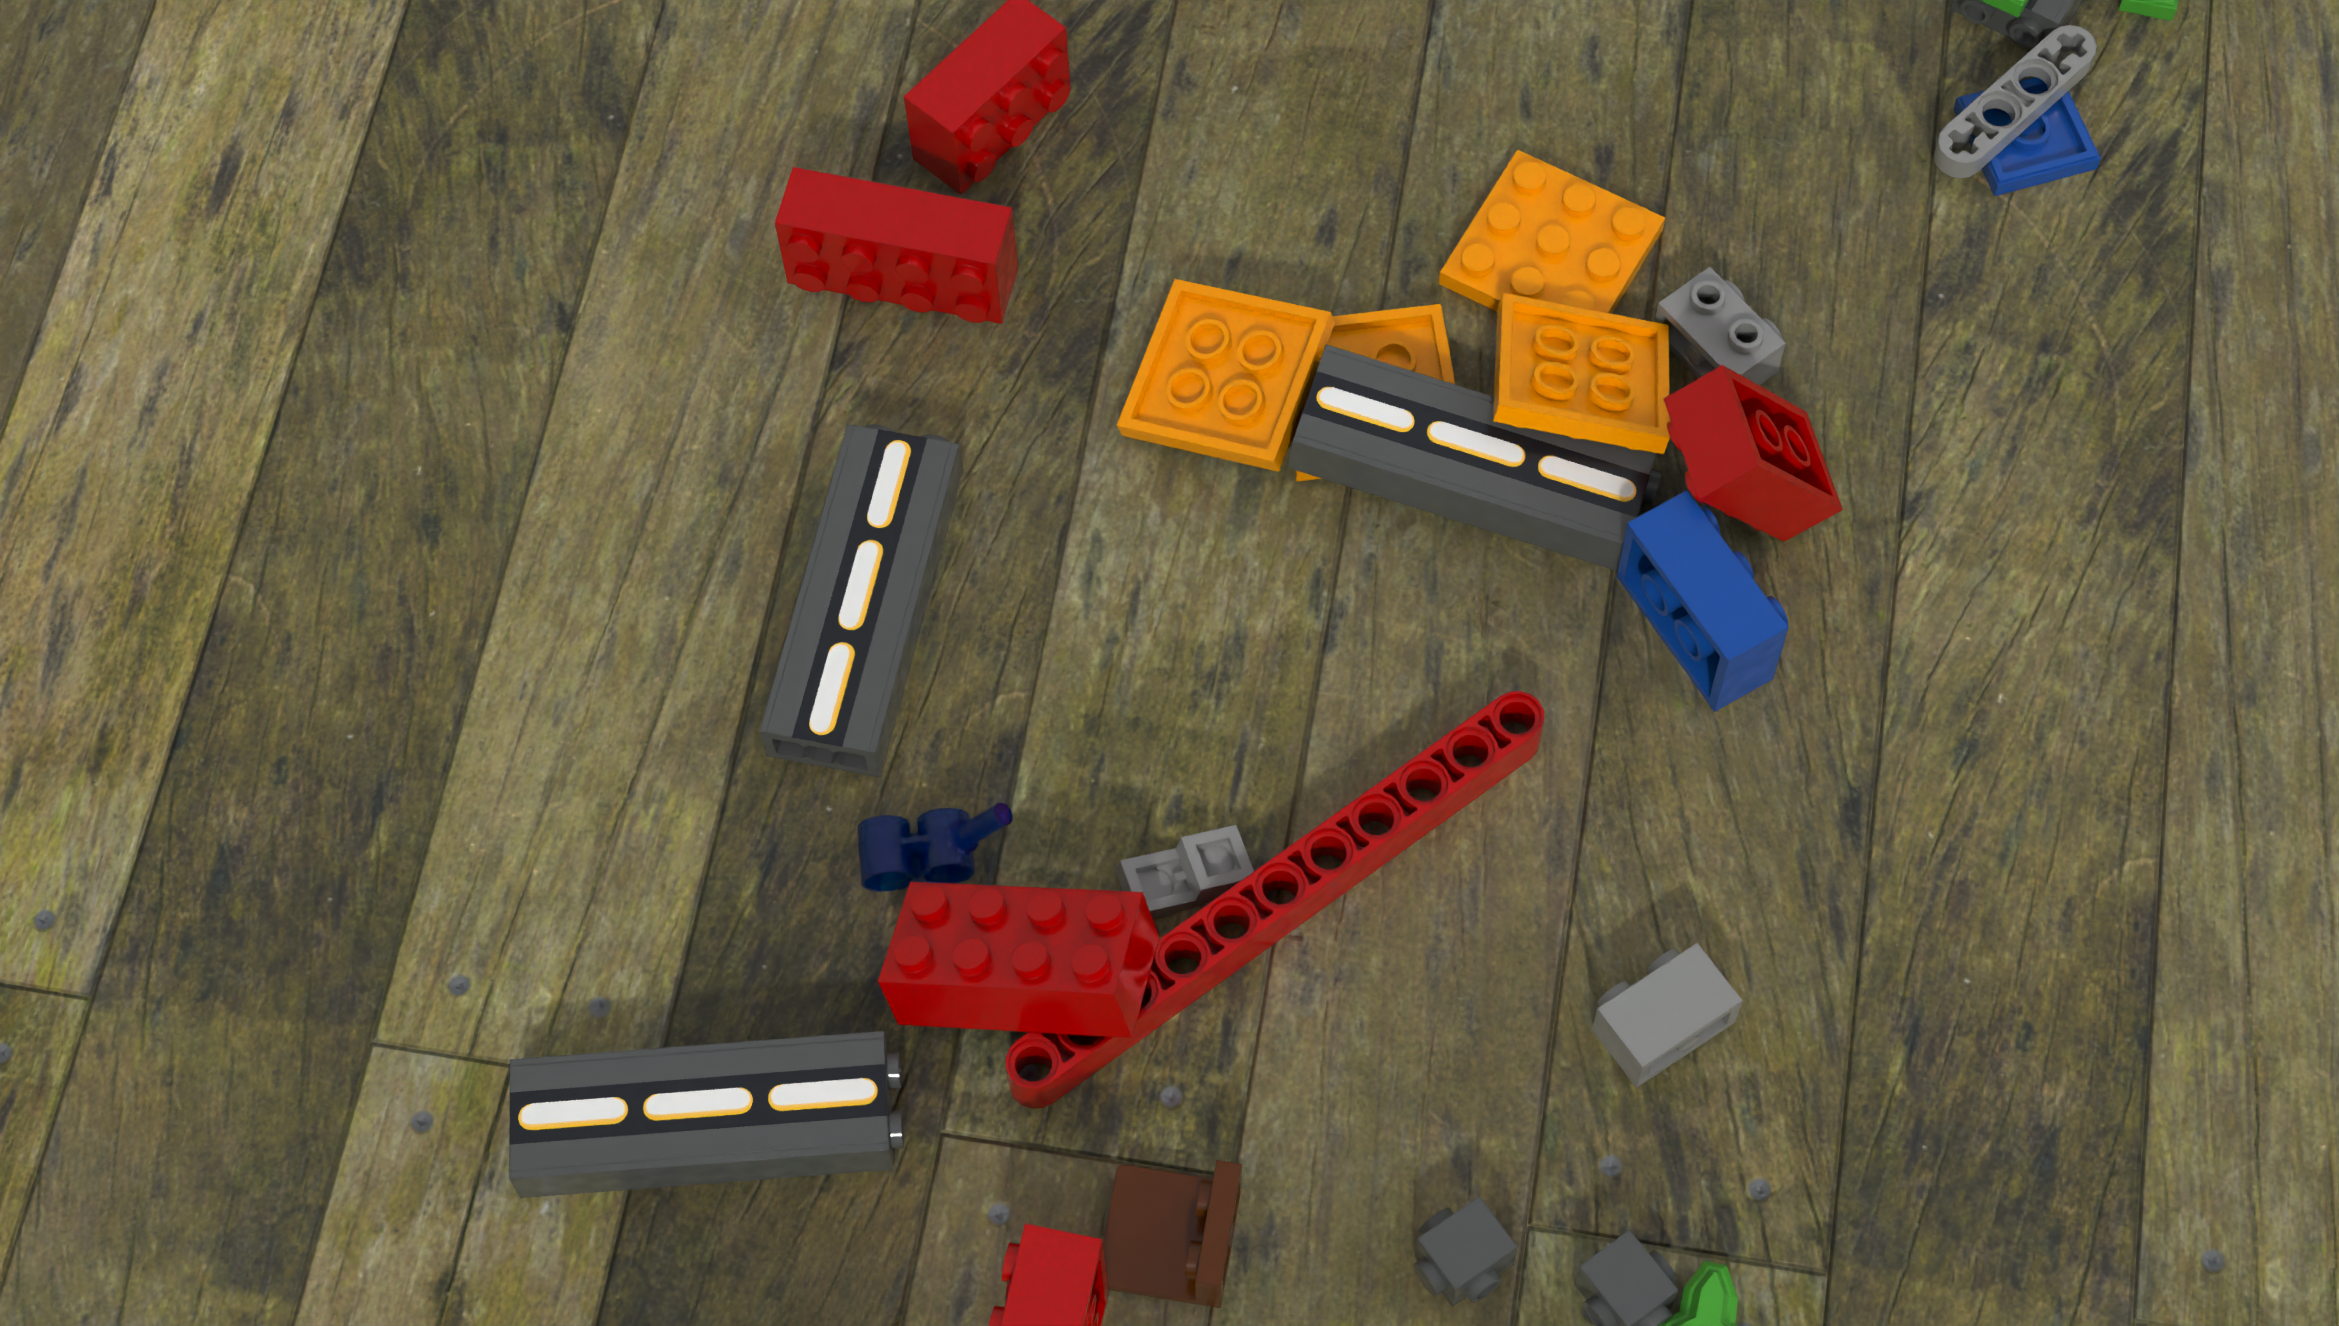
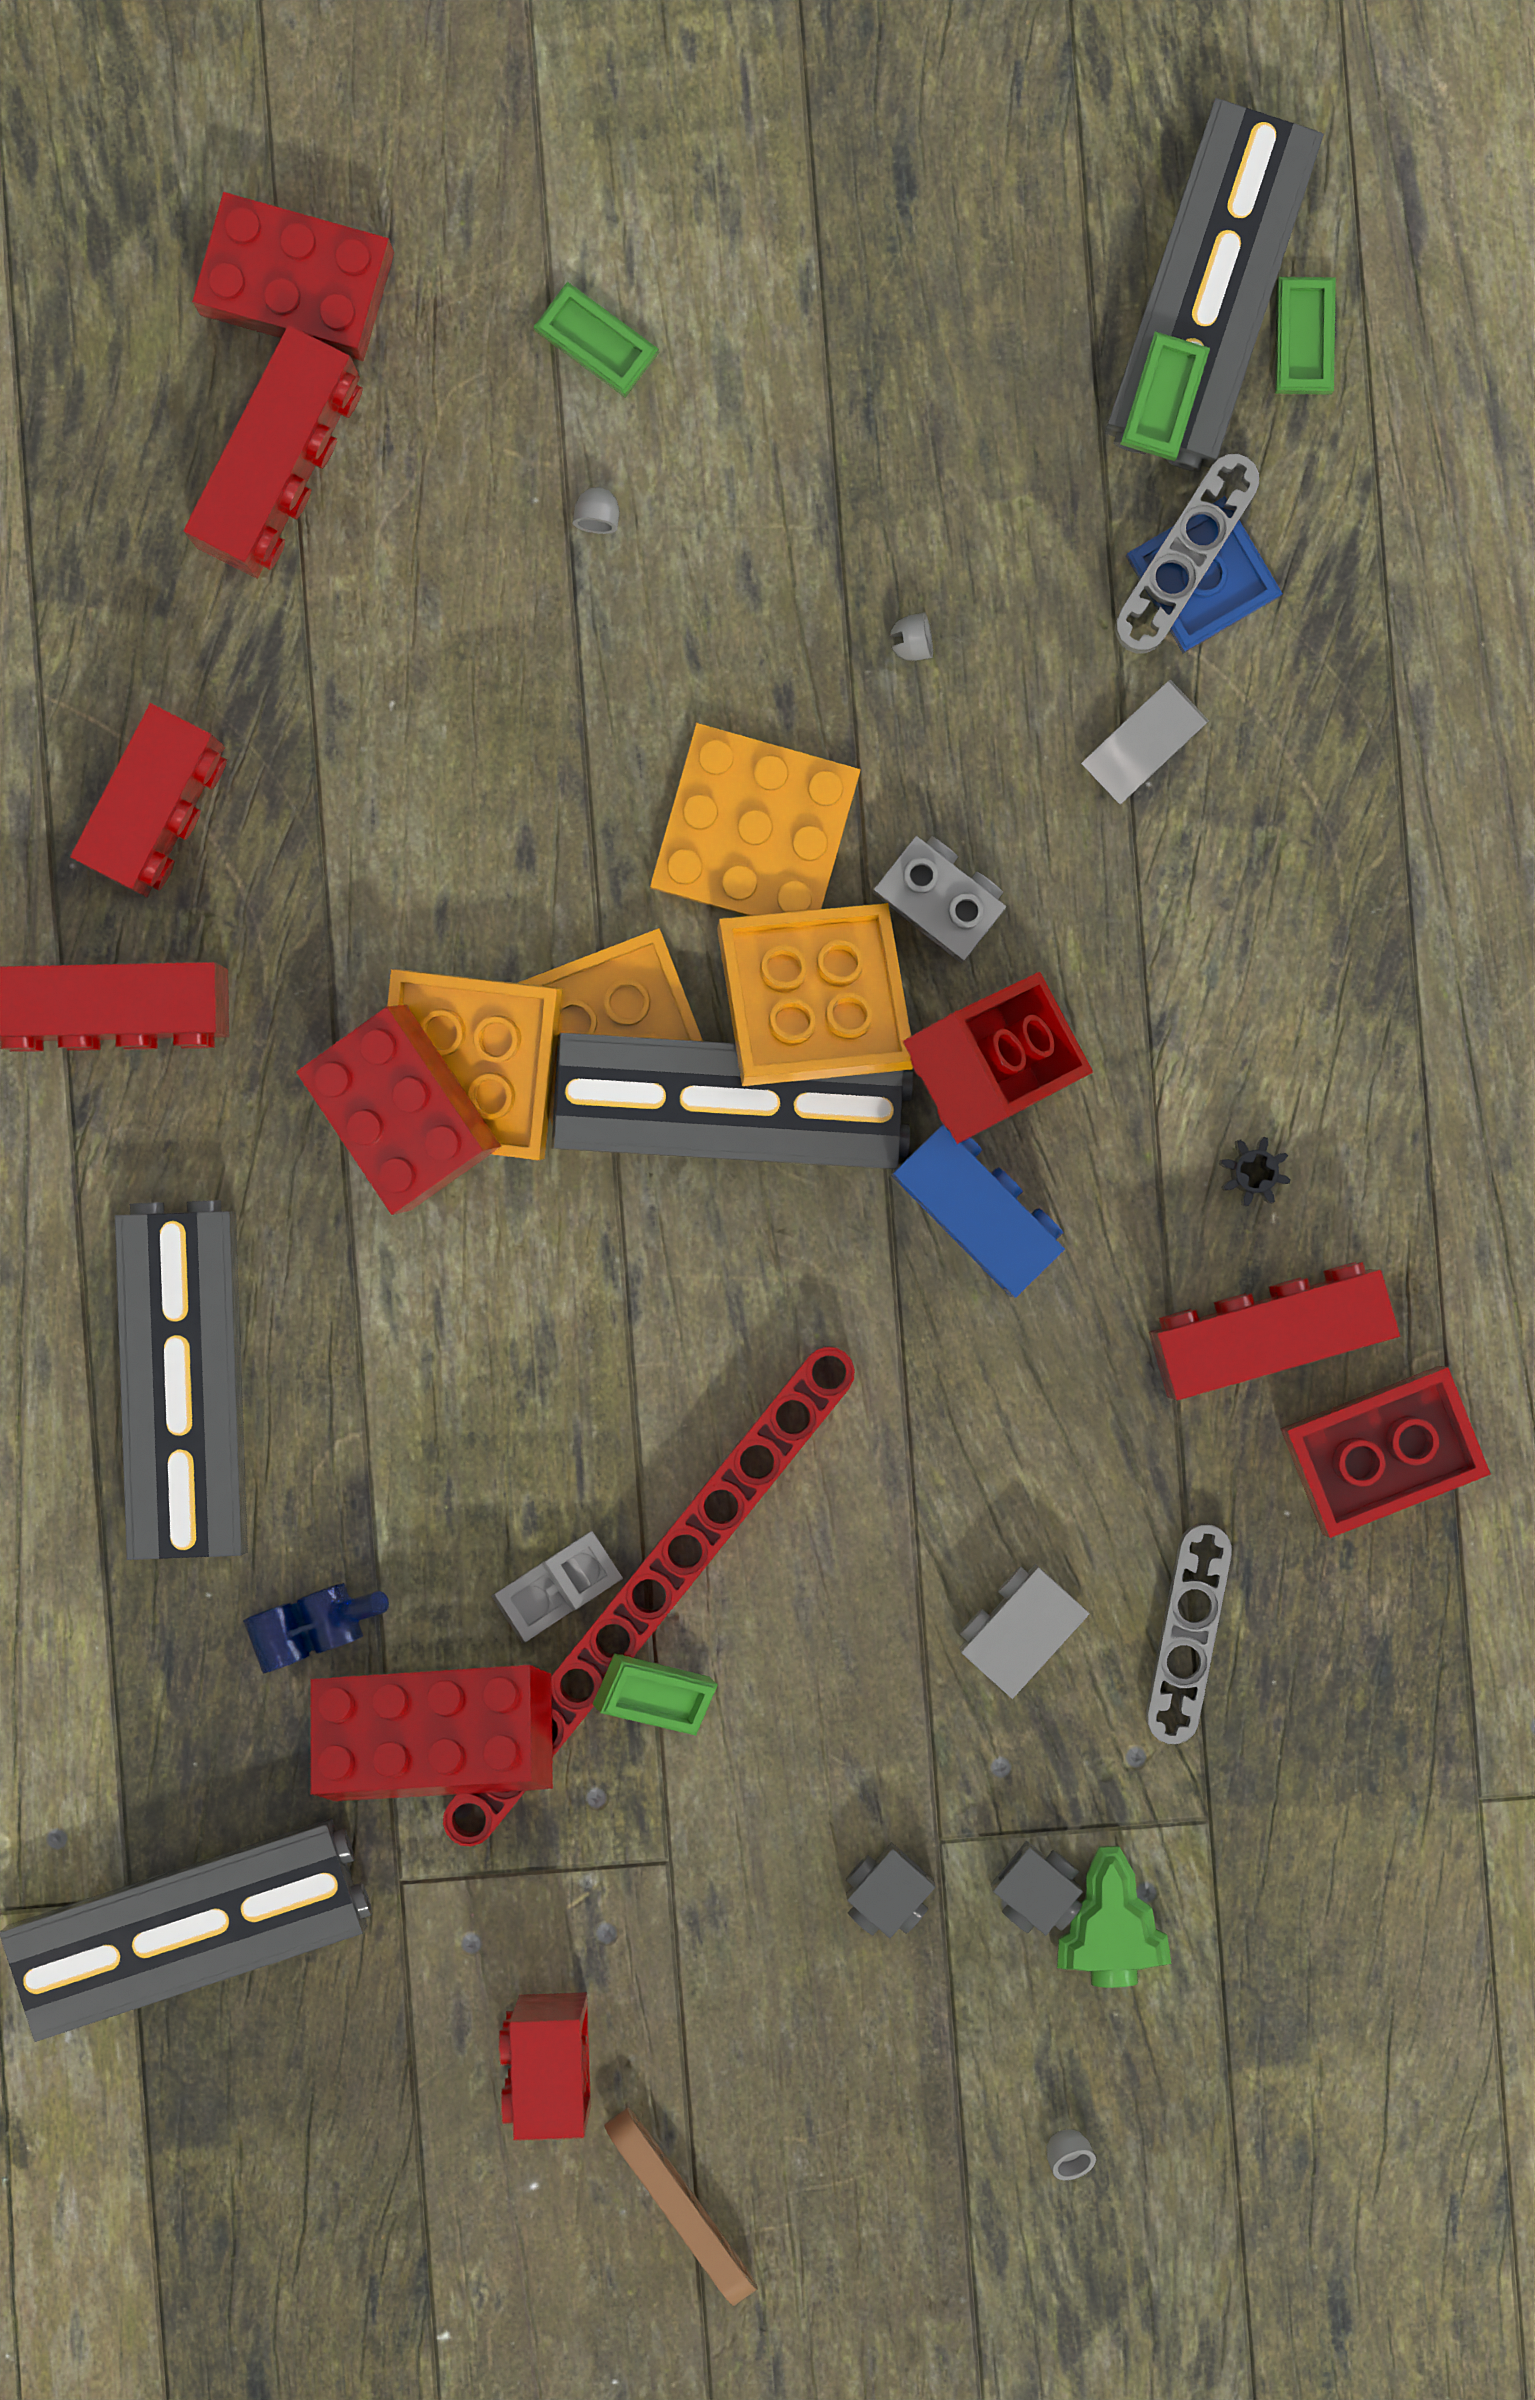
camera: 15 degrees left, 25 degrees up
(1149, 385) = (398, 1109): none -> red brick
(1172, 1233) = (628, 1934): reddish brown bracket -> none
(1262, 988) = (655, 1694): none -> bright green tile
(1737, 124) = (916, 637): none -> light grey hinge
(1843, 1070) = (1198, 1634): none -> light grey beam
(1944, 249) = (1145, 742): none -> light grey slope
(1987, 777) = (1274, 1333): none -> red brick
(1994, 623) = (1241, 1180): none -> black gear
(2086, 922) = (1385, 1451): none -> red brick

